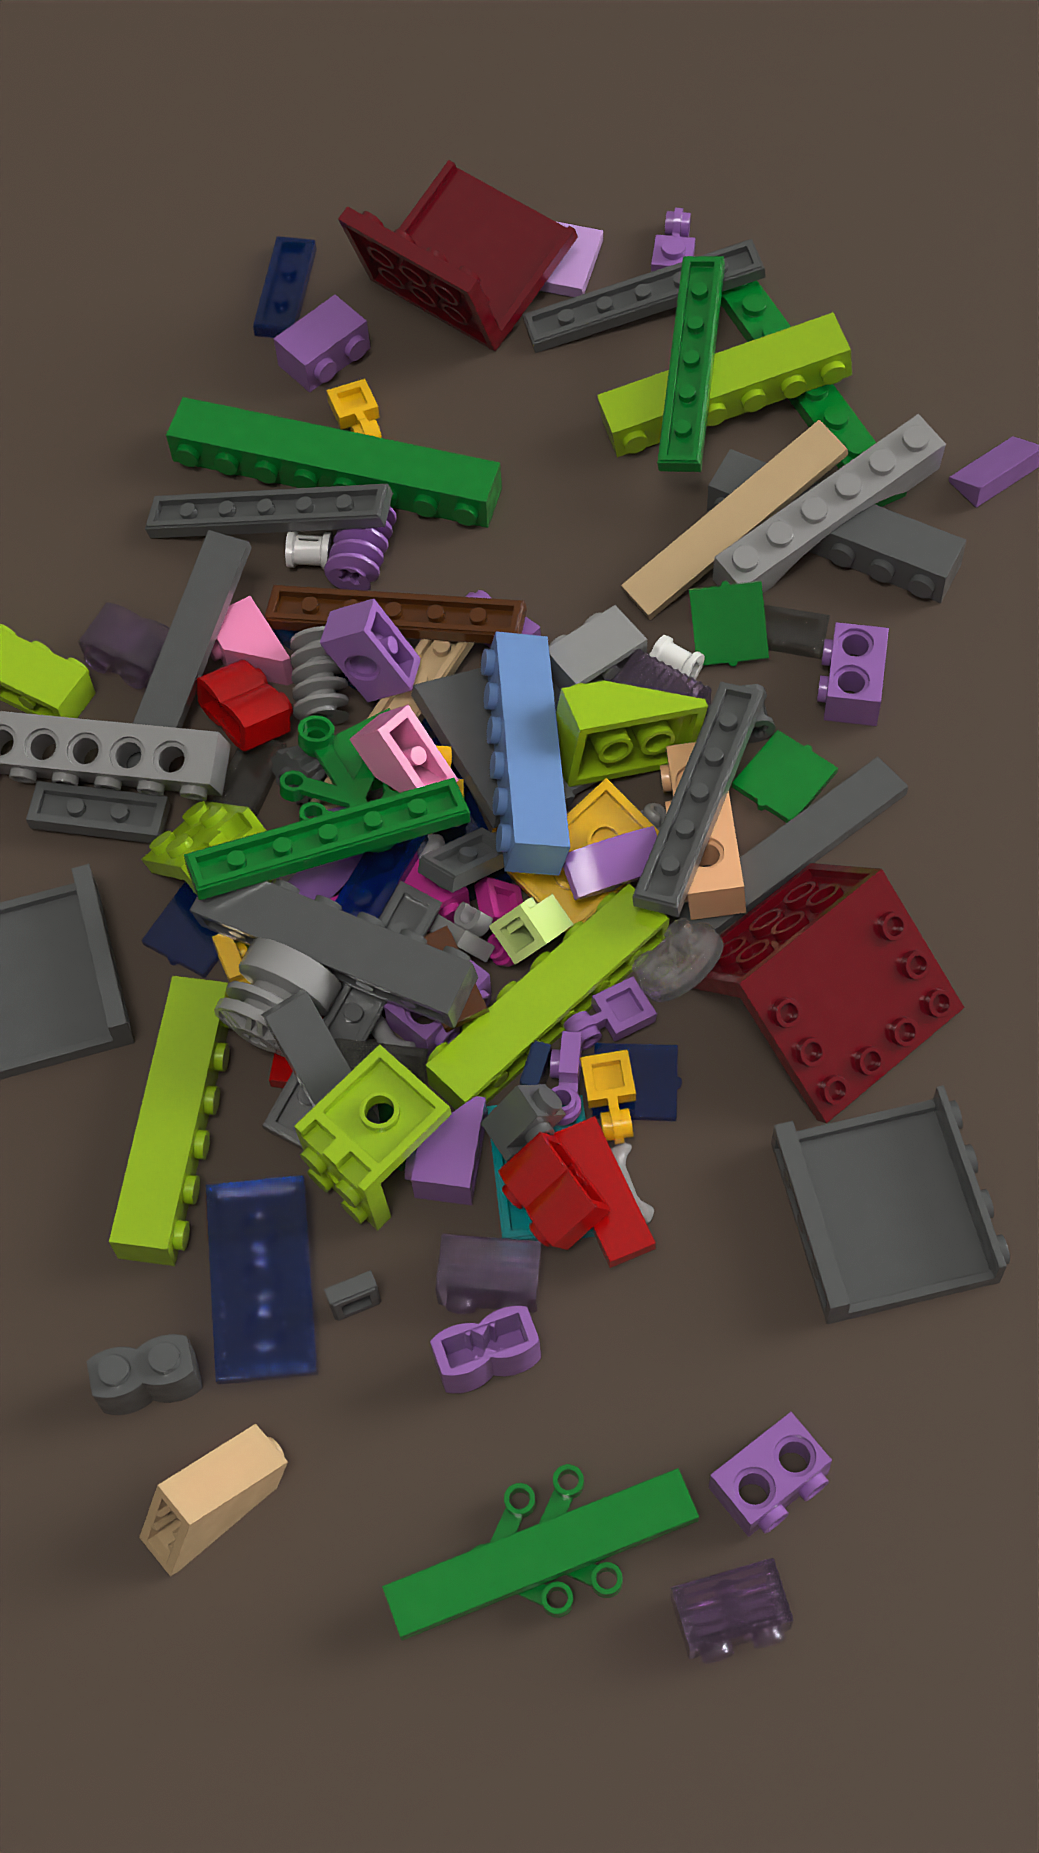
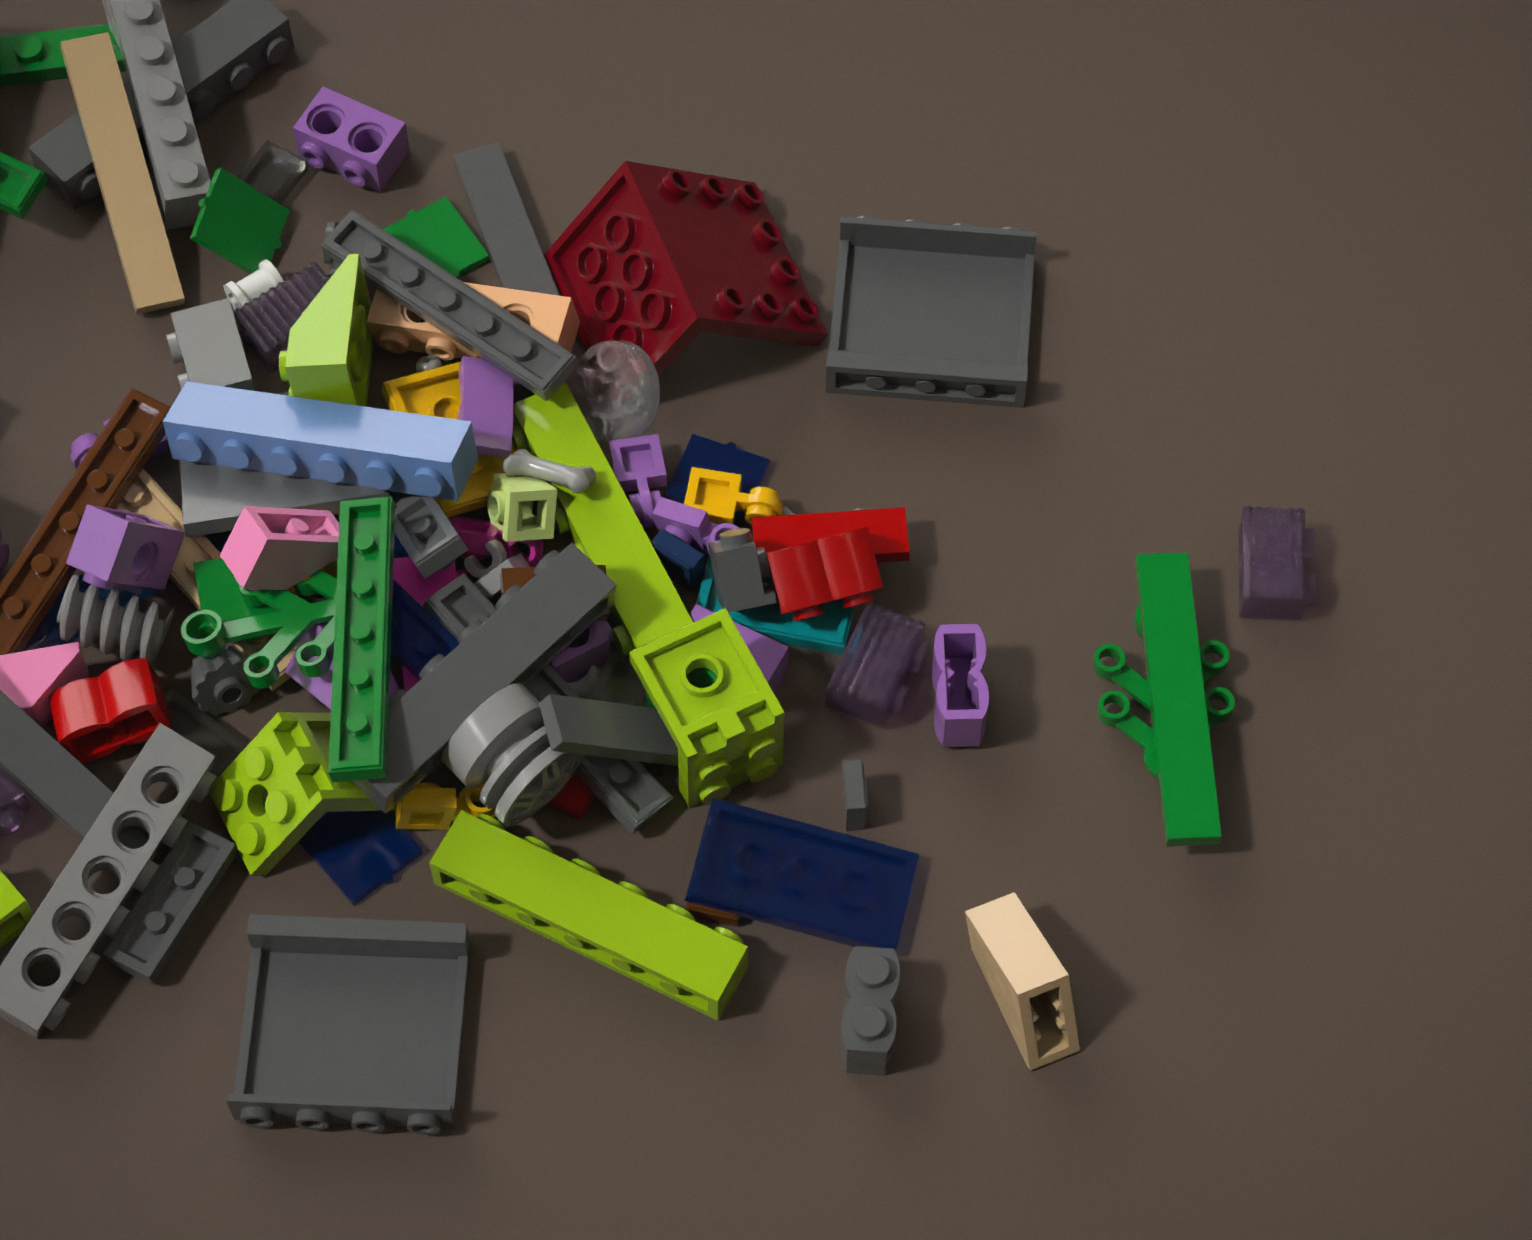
camera: 75 degrees left, 0 degrees up
(566, 952) = (575, 478): none -> light grey piece
(761, 1466) = (1150, 493): medium lavender brick -> none

